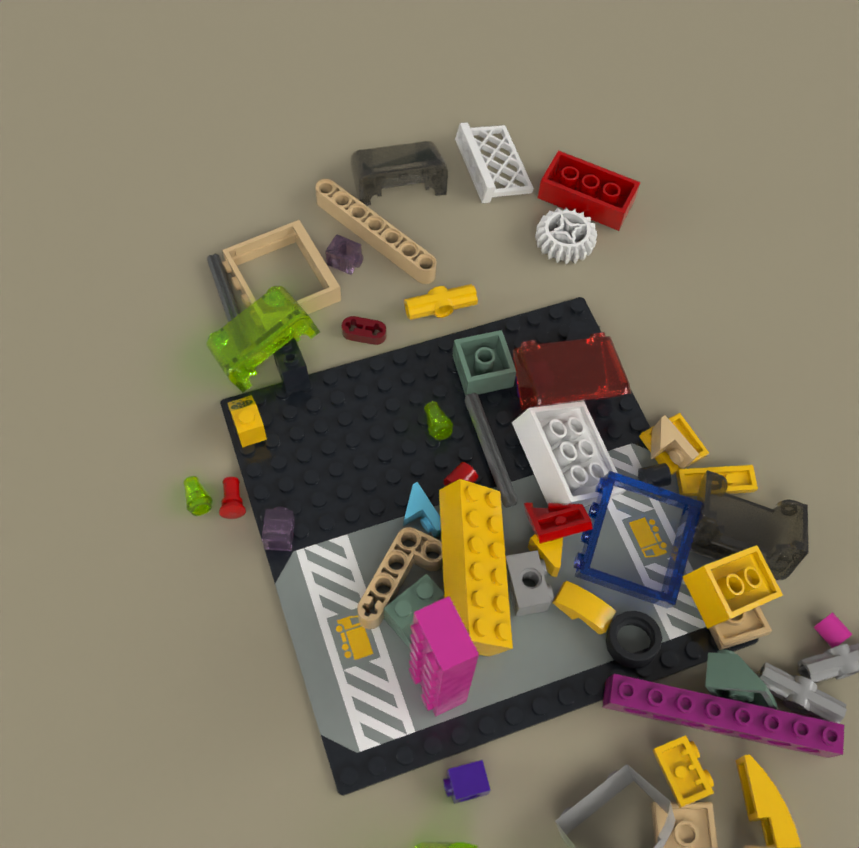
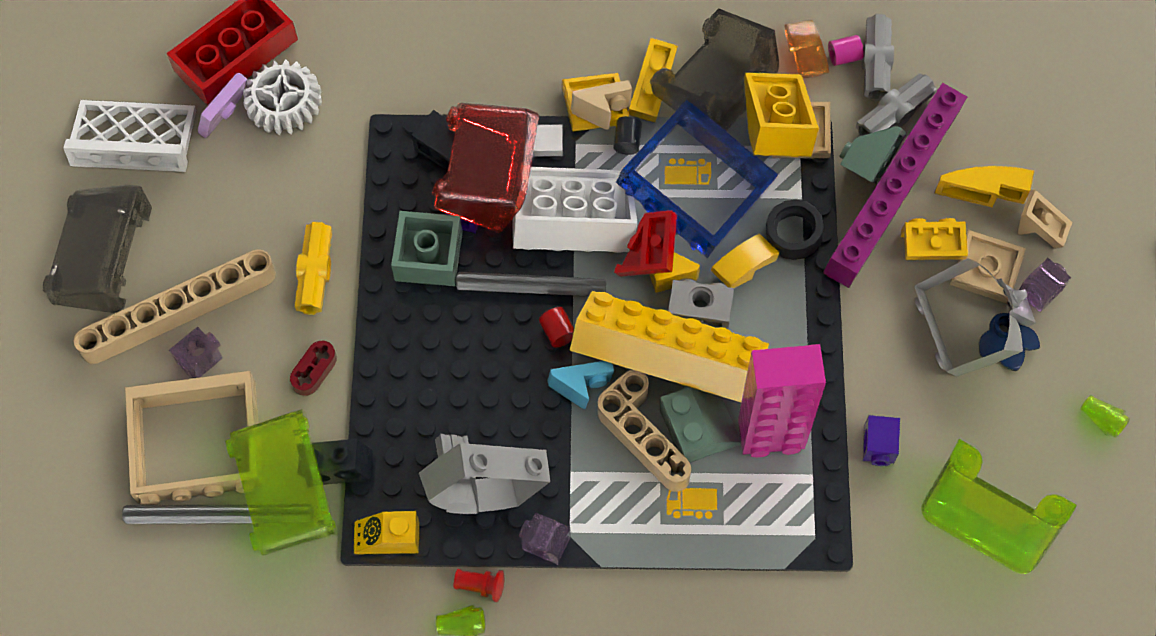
camera: 65 degrees left, 5 degrees up
(303, 457) = (510, 473): none -> light grey piece
(438, 423) = (477, 325): clear neon green cone -> none
(536, 197) = (222, 105): none -> lavender plate
(620, 419) = (548, 141): none -> white tile
(815, 596) = (807, 47): none -> clear orange slope

